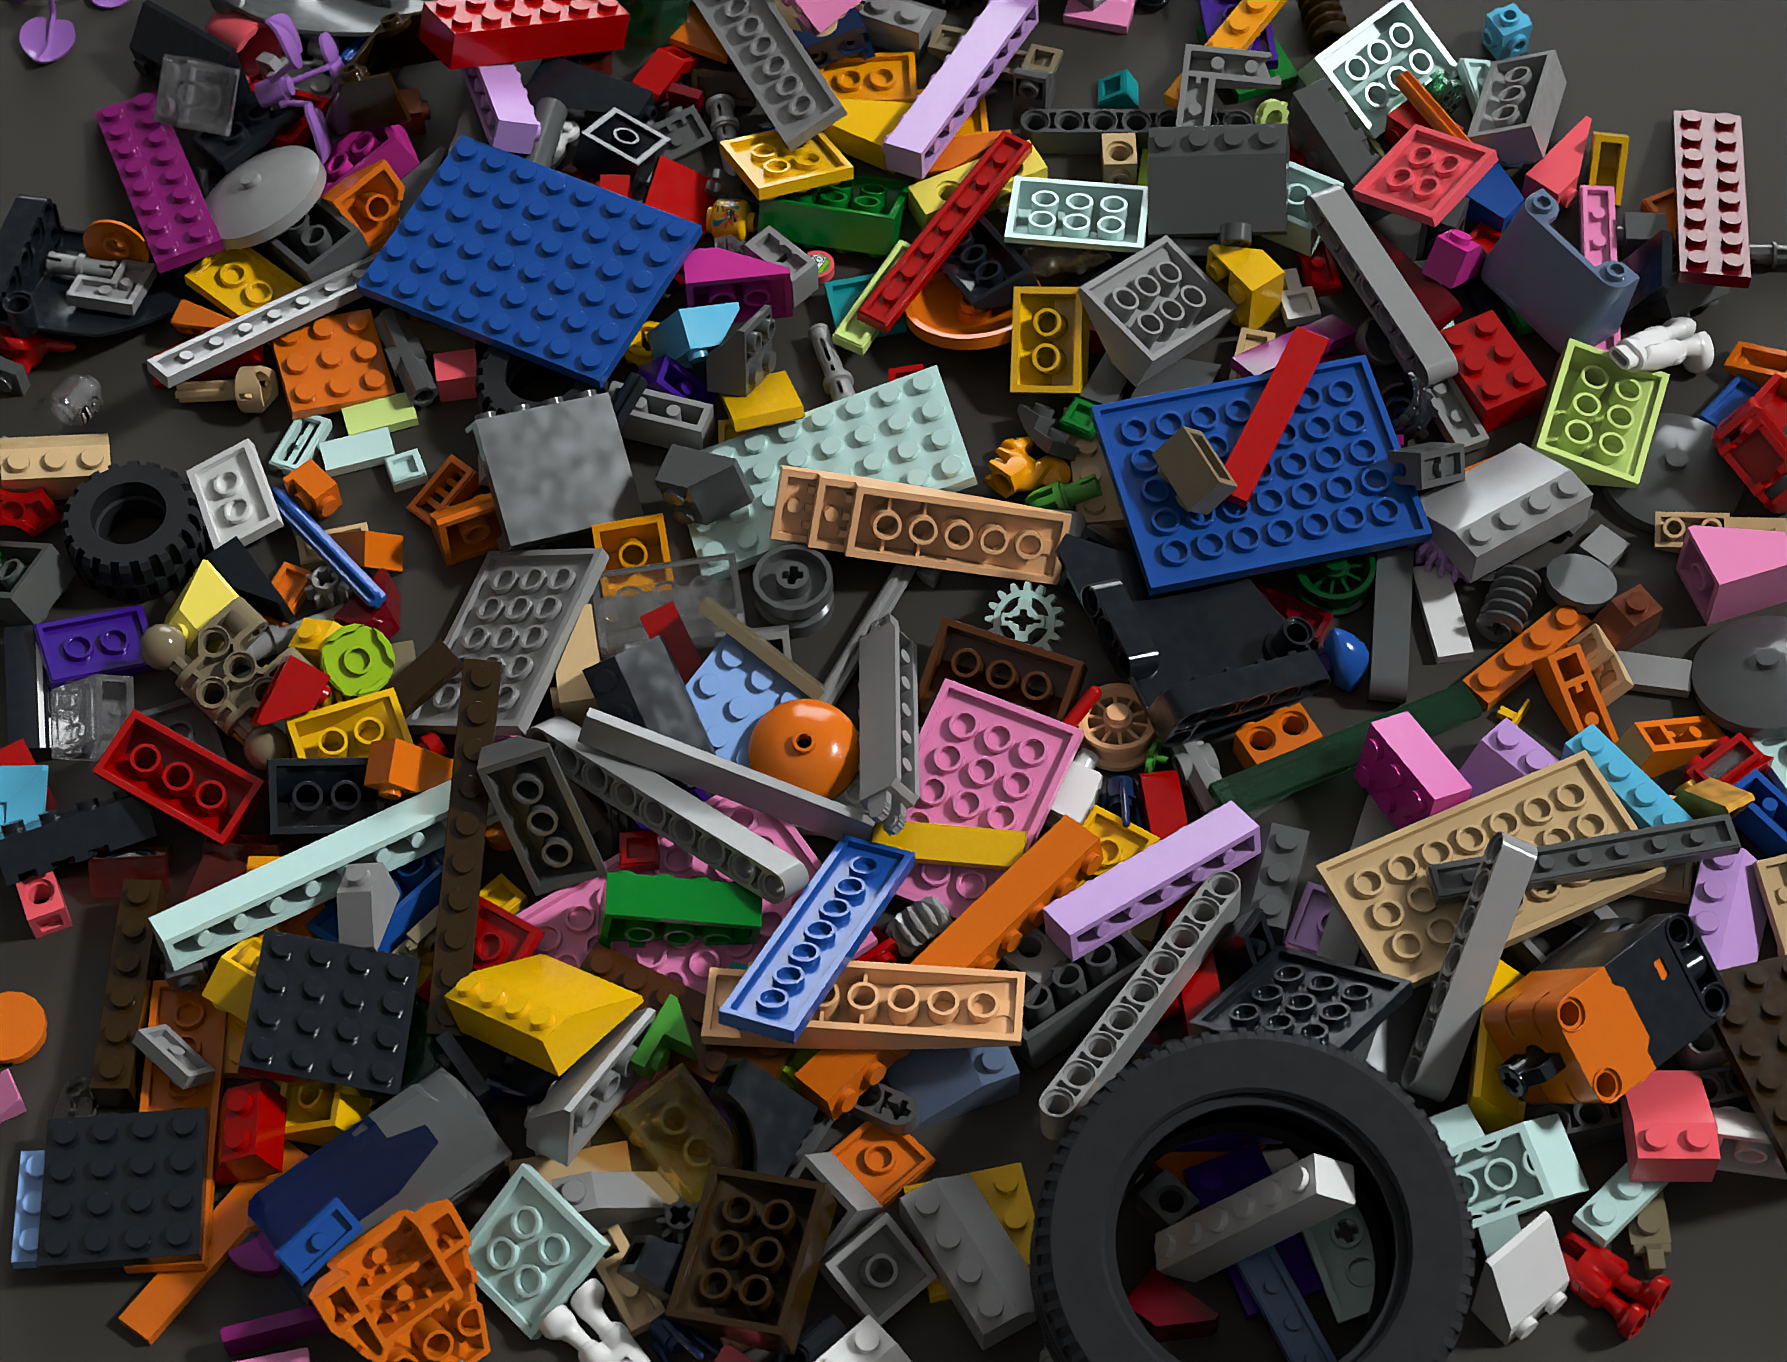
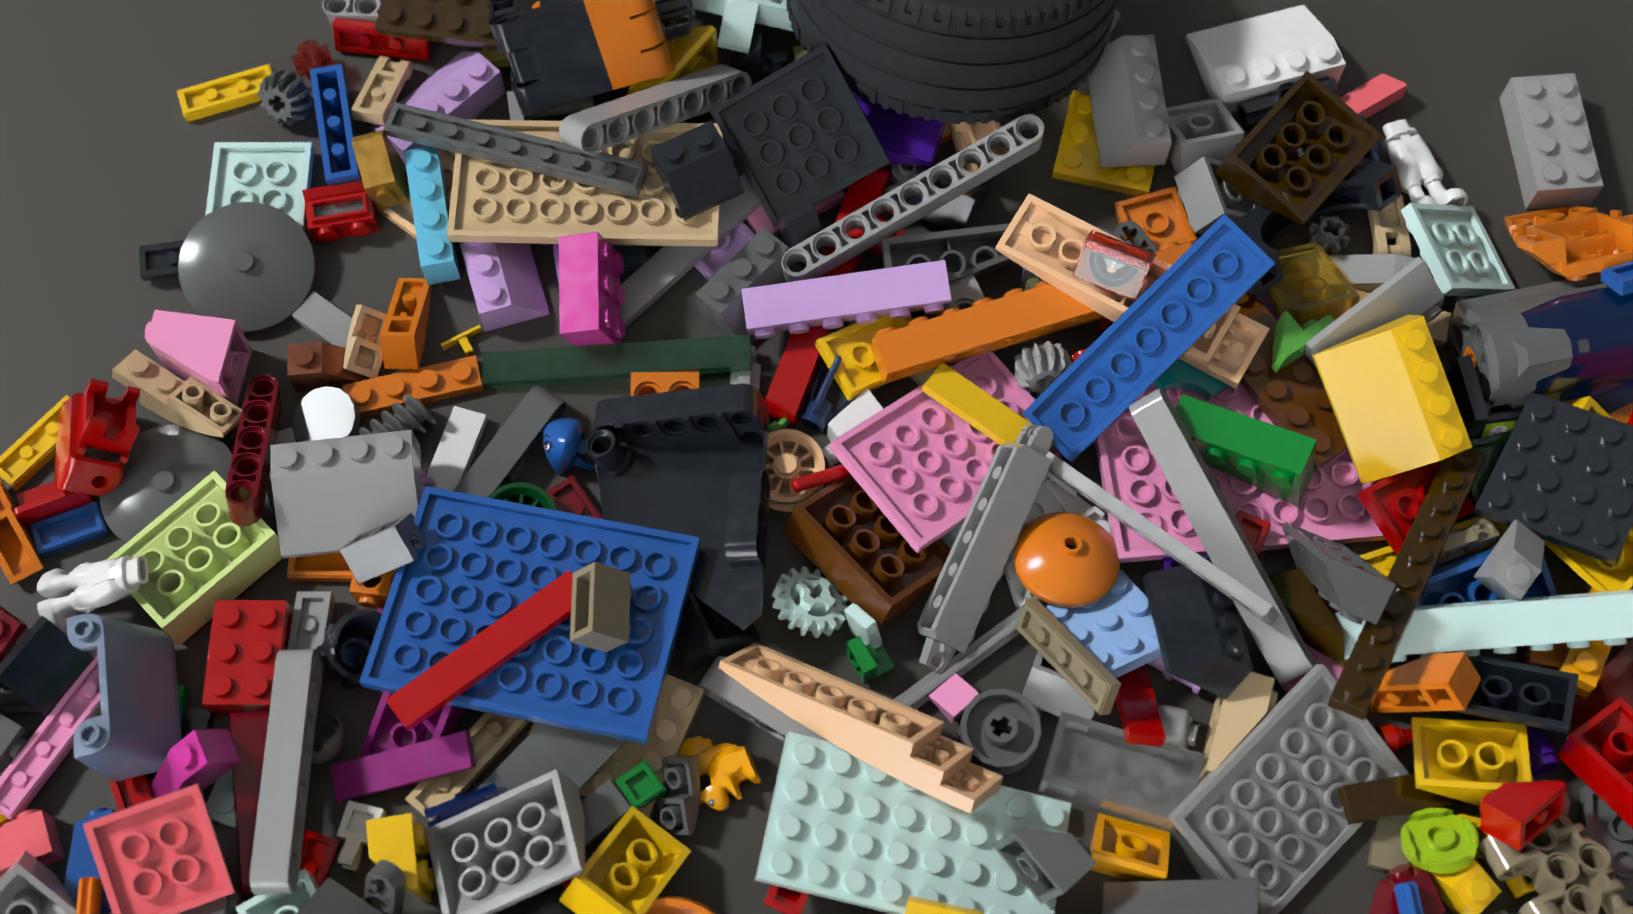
camera: 155 degrees left, 10 degrees up
(848, 604) = (953, 697): none -> bright pink slope
(890, 996) = (1113, 264): none -> panel
(947, 599) = (868, 662): none -> green bracket
(965, 614) = (863, 624): none -> light aqua tile
(1063, 496) = (706, 711): bright green arm -> none
(1220, 339) = (459, 804): none -> clear blue pin
(1381, 910) = (696, 170): none -> black slope
(1617, 527) = (251, 453): none -> dark red beam
(1668, 743) = (370, 251): orange slope -> none

